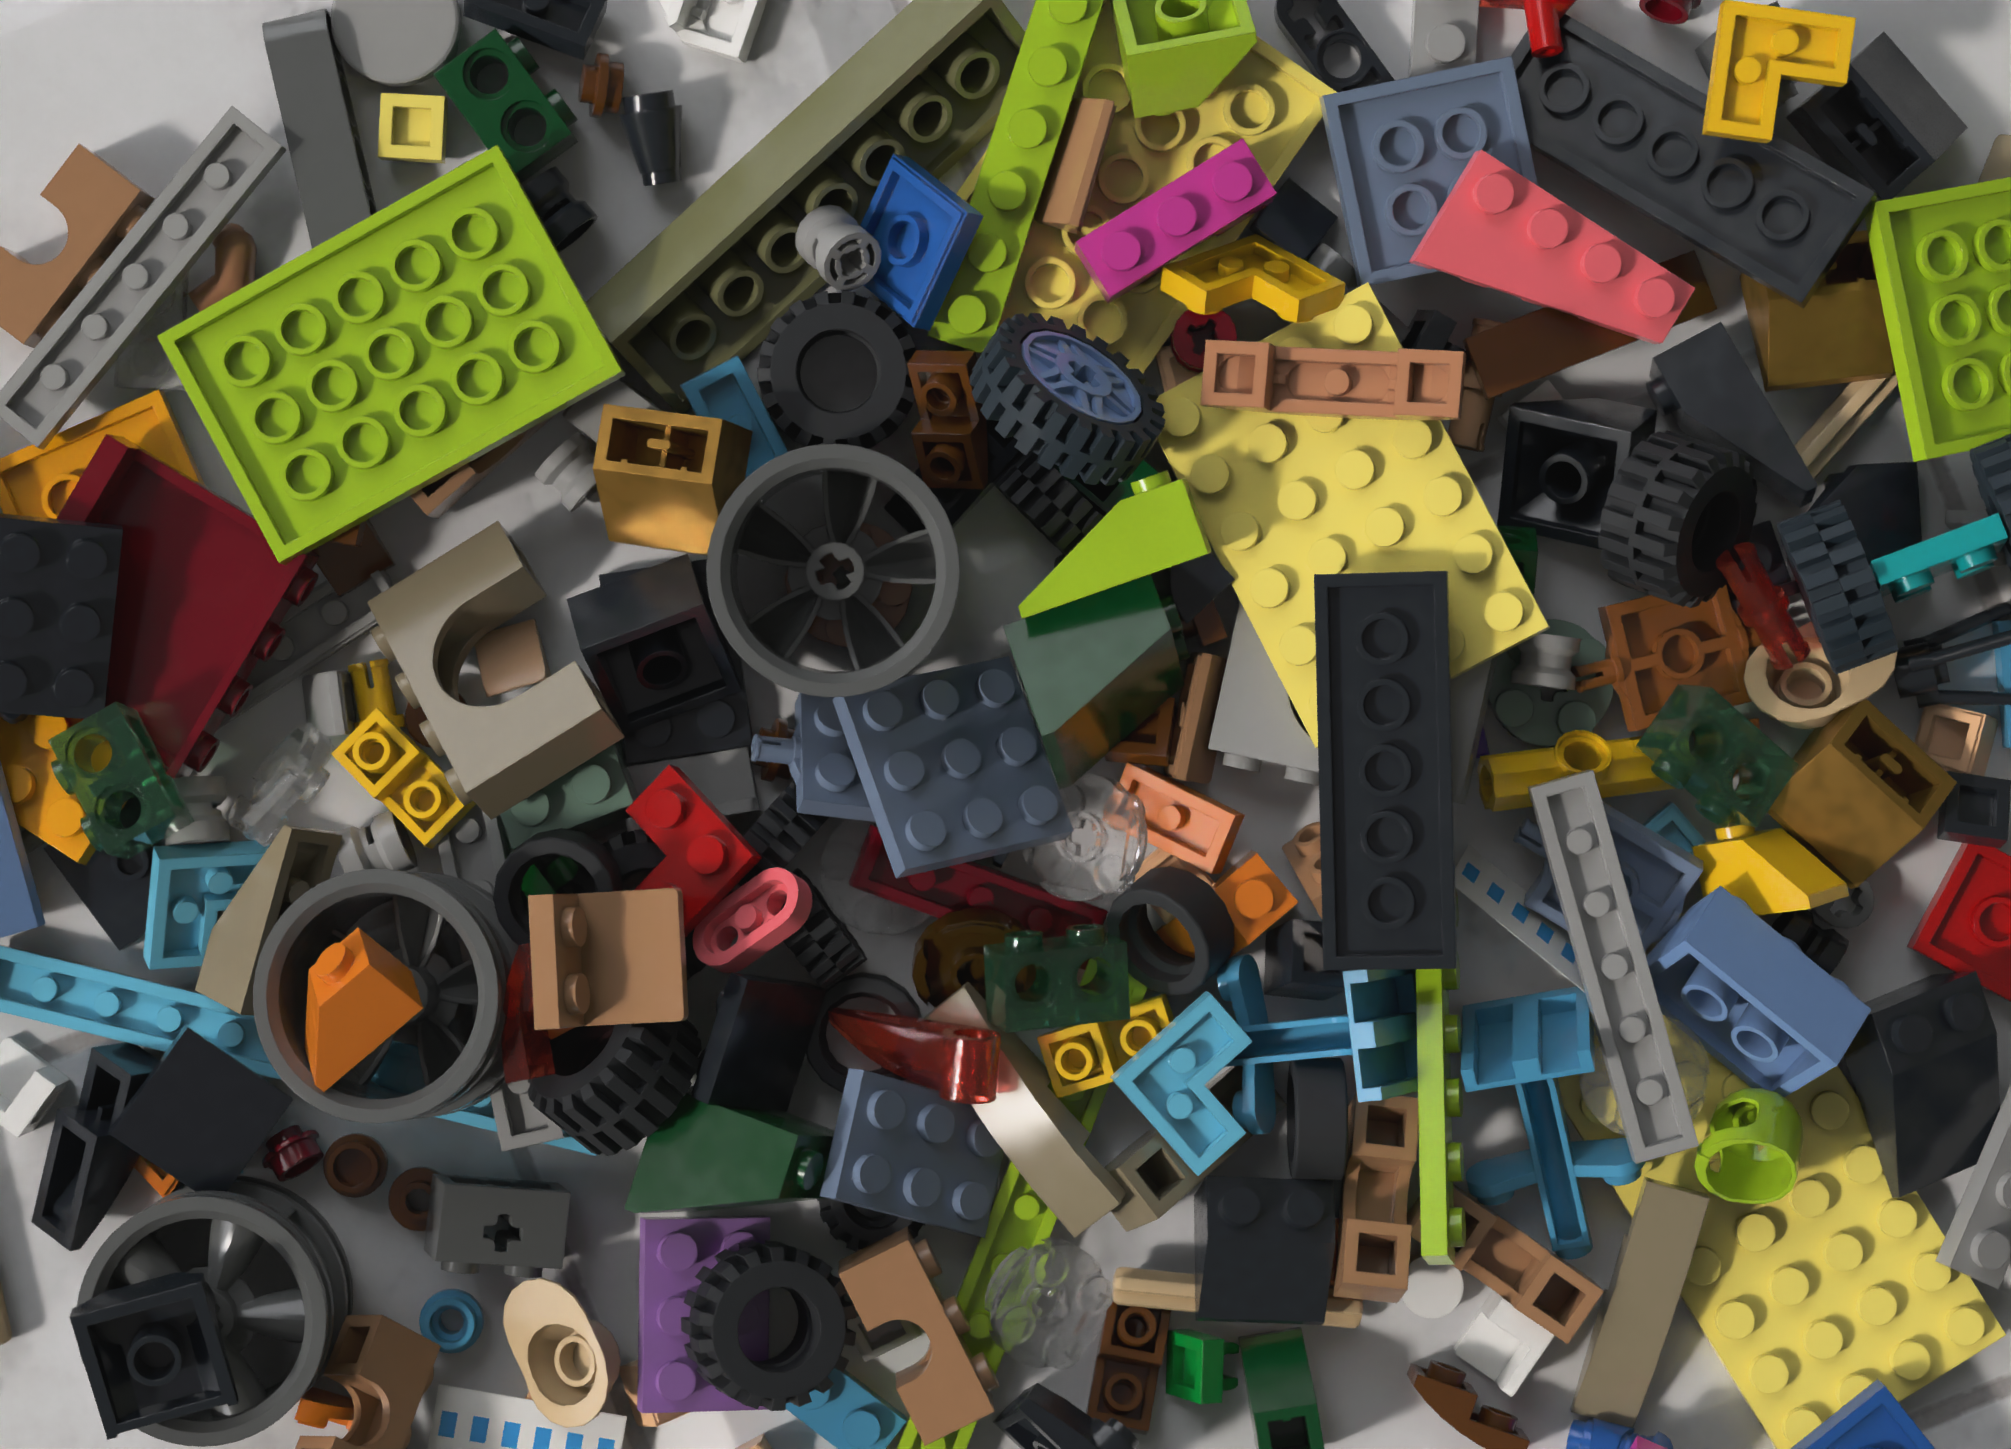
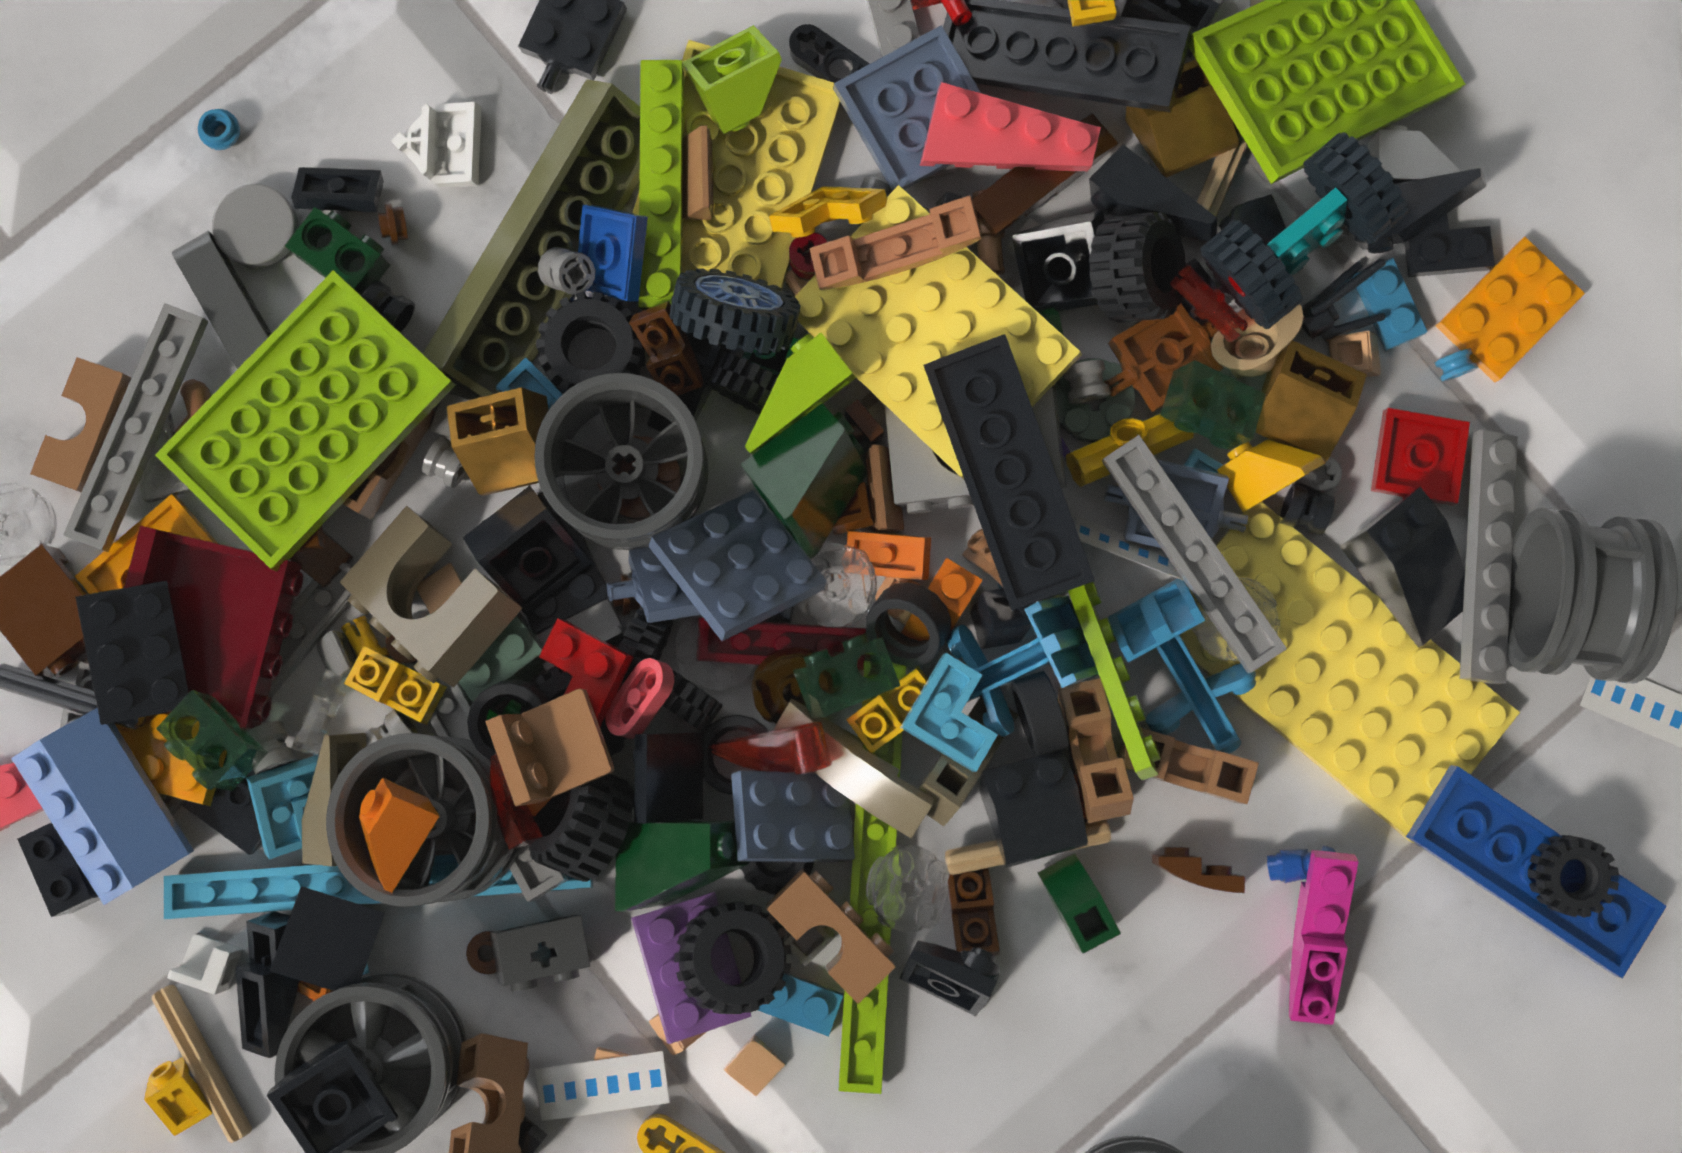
camera: 15 degrees left, 5 degrees down
(292, 1152) = (397, 949): dark red plate -> none
(321, 1406) = (462, 1108): orange tile -> none
(355, 1165) = (440, 944): reddish brown plate -> none
(412, 128) = (283, 286): light yellow plate -> none
(433, 1328) = (519, 1030): dark azure plate -> none
(560, 1351) = (606, 1021): tan piece -> none
(654, 135) = (434, 243): black cone -> none
(1175, 220) = (779, 171): dark pink arch -> none
(1196, 1366) = (1017, 899): green tile -> none
(1197, 584) = (854, 402): black tile -> none
(1294, 220) = (842, 170): black slope -> none
(1432, 1288) = (1150, 799): white tile -> none
(1503, 1343) = (1206, 820): white panel -> none
(1639, 1302) = (1283, 766): dark tan slope -> none
(1744, 1171) = (1319, 623): lime helmet -> none
(1753, 995) = (1288, 546): medium blue slope -> none
(1976, 811) = (1384, 391): black tile -> none

